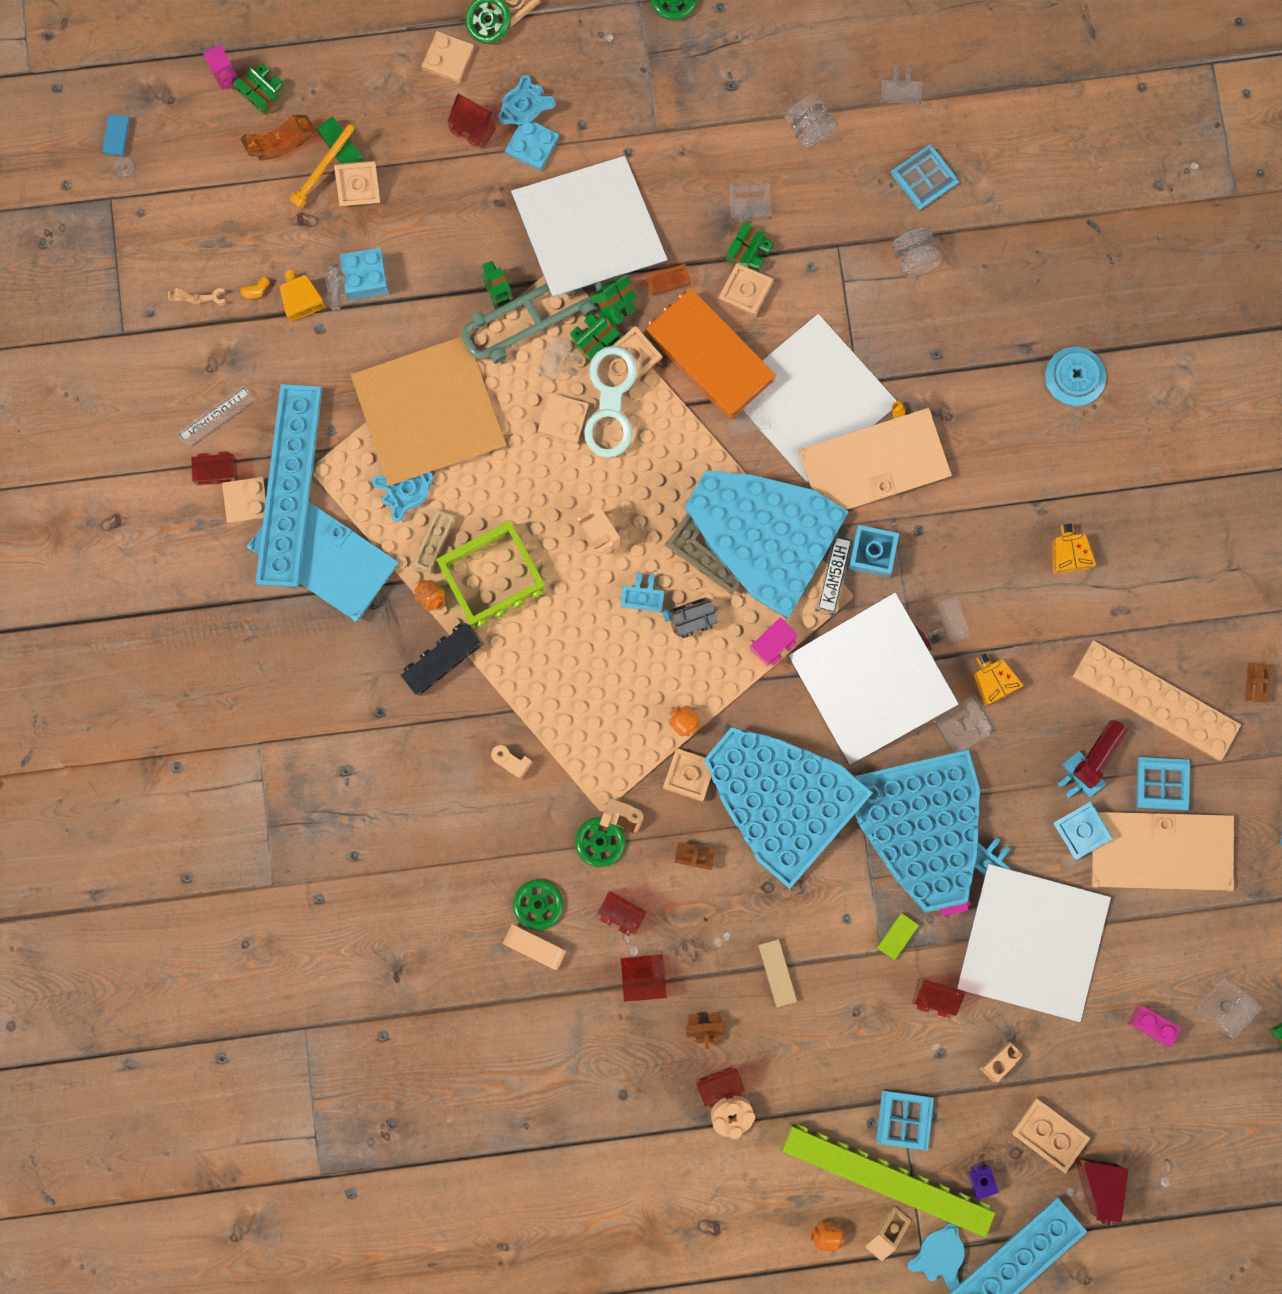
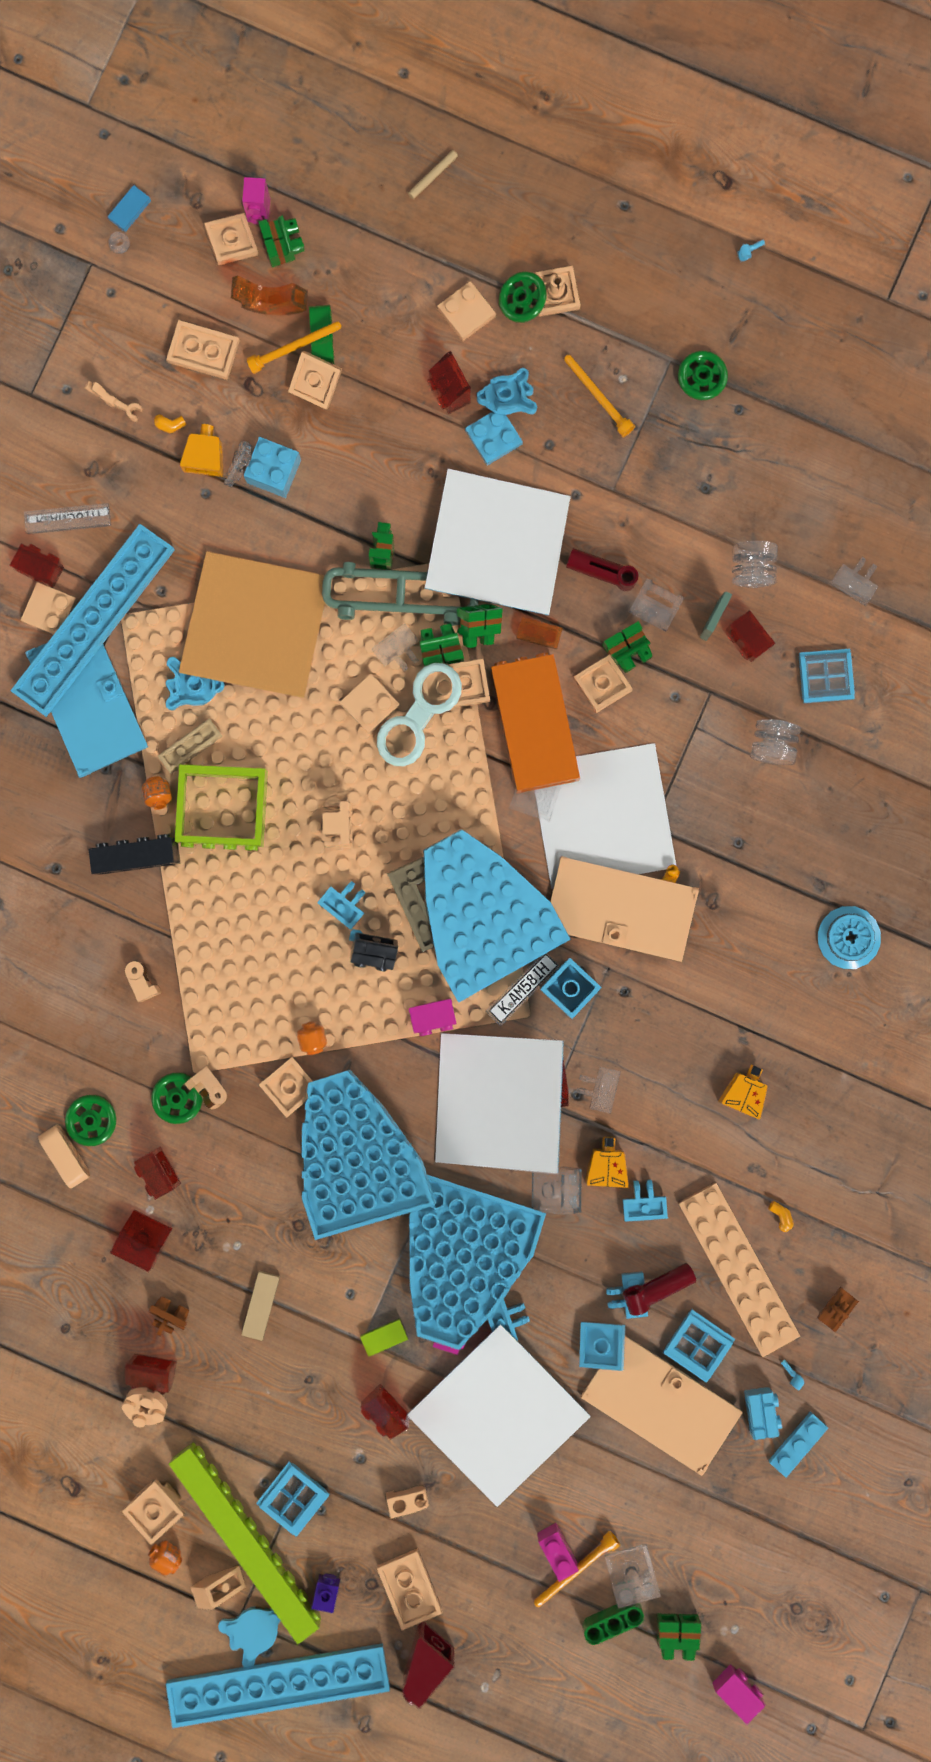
camera: 25 degrees right, 5 degrees up
(216, 111) = (231, 239): none -> light nougat plate
(247, 213) = (203, 350): none -> light nougat plate
(633, 73) = (624, 426): none -> light orange piece
(688, 198) = (602, 569): none -> dark red piece
(694, 855) = (249, 1161): dark orange hips -> none
(794, 1199) = (154, 1510): none -> light nougat panel
(805, 180) = (715, 615): none -> sand green tile
(842, 181) = (750, 636): none -> clear red brick
(1046, 696) = (644, 1207): none -> medium azure hinge
(1164, 632) = (786, 1221): none -> light orange arm
(1191, 994) = (607, 1544): none -> light orange piece
(1226, 1060) = (607, 1631): none -> green beam
(1250, 806) = (762, 1413): none -> medium azure brick
(1262, 763) = (797, 1381): none -> medium azure hand

